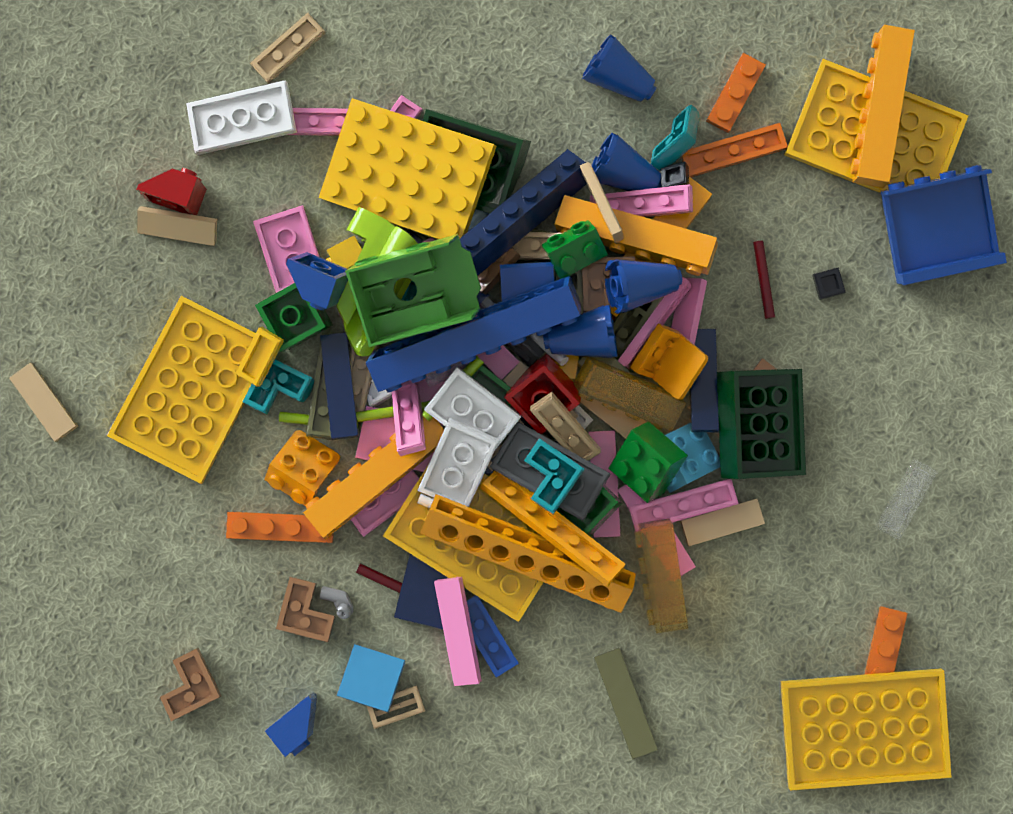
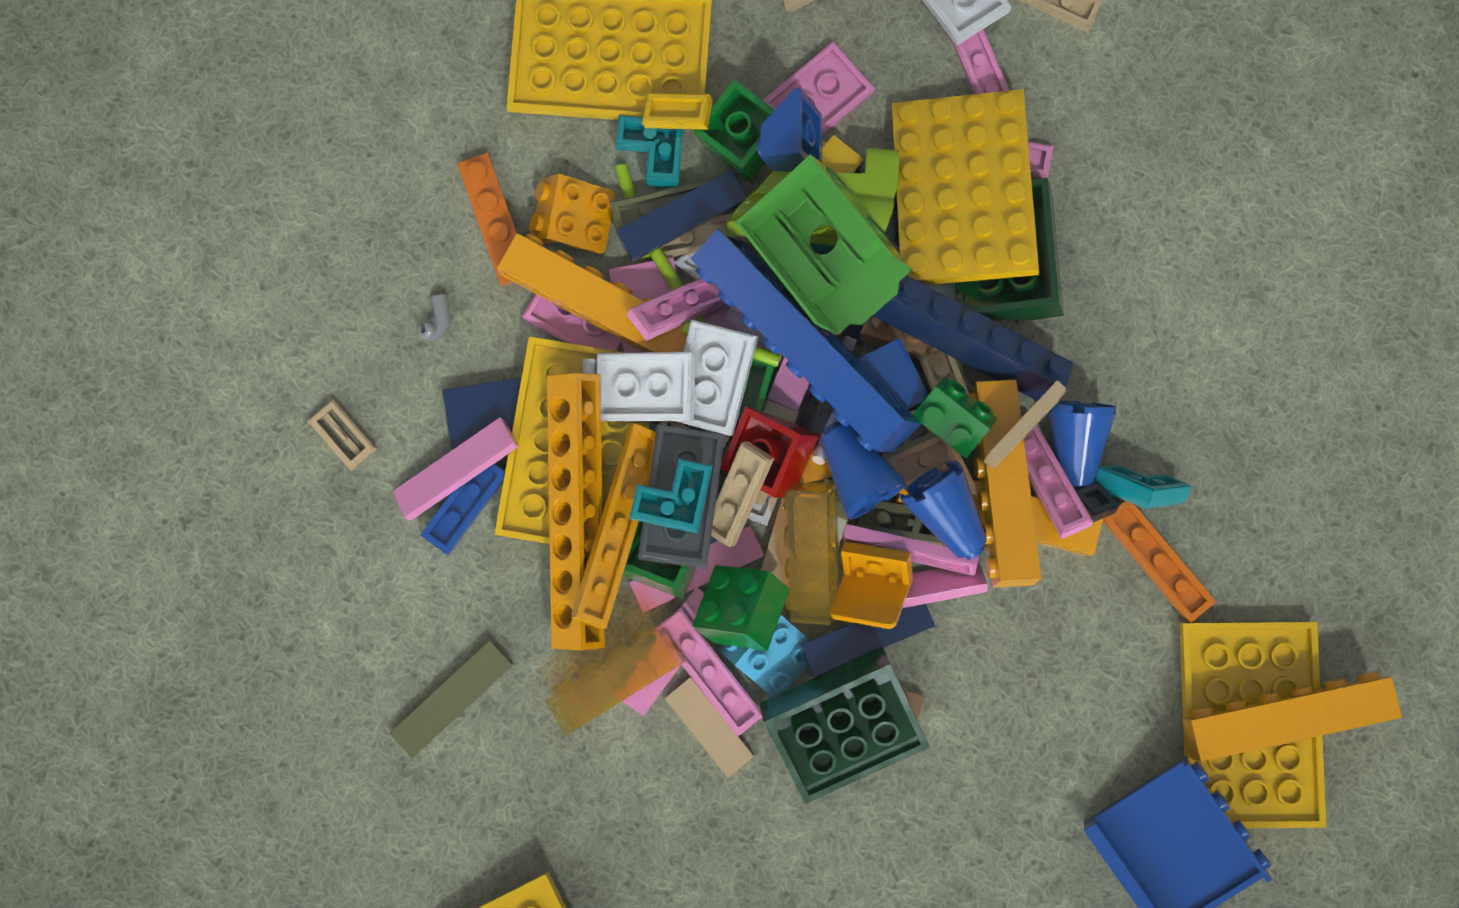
camera: 65 degrees right, 0 degrees up
(198, 686) = (275, 203): medium nougat plate -> none
(295, 727) = (269, 328): blue slope -> none
(298, 617) = (401, 279): medium nougat plate -> none
(371, 678) = (362, 393): dark azure tile -> none
(379, 578) = (482, 354): dark red bar -> none
(619, 72) = (1192, 386): blue cone -> none
(735, 93) = (1229, 535): orange plate -> none
(764, 281) = (1018, 660): dark red bar -> none
(829, 283) = (1047, 739): black tile -> none

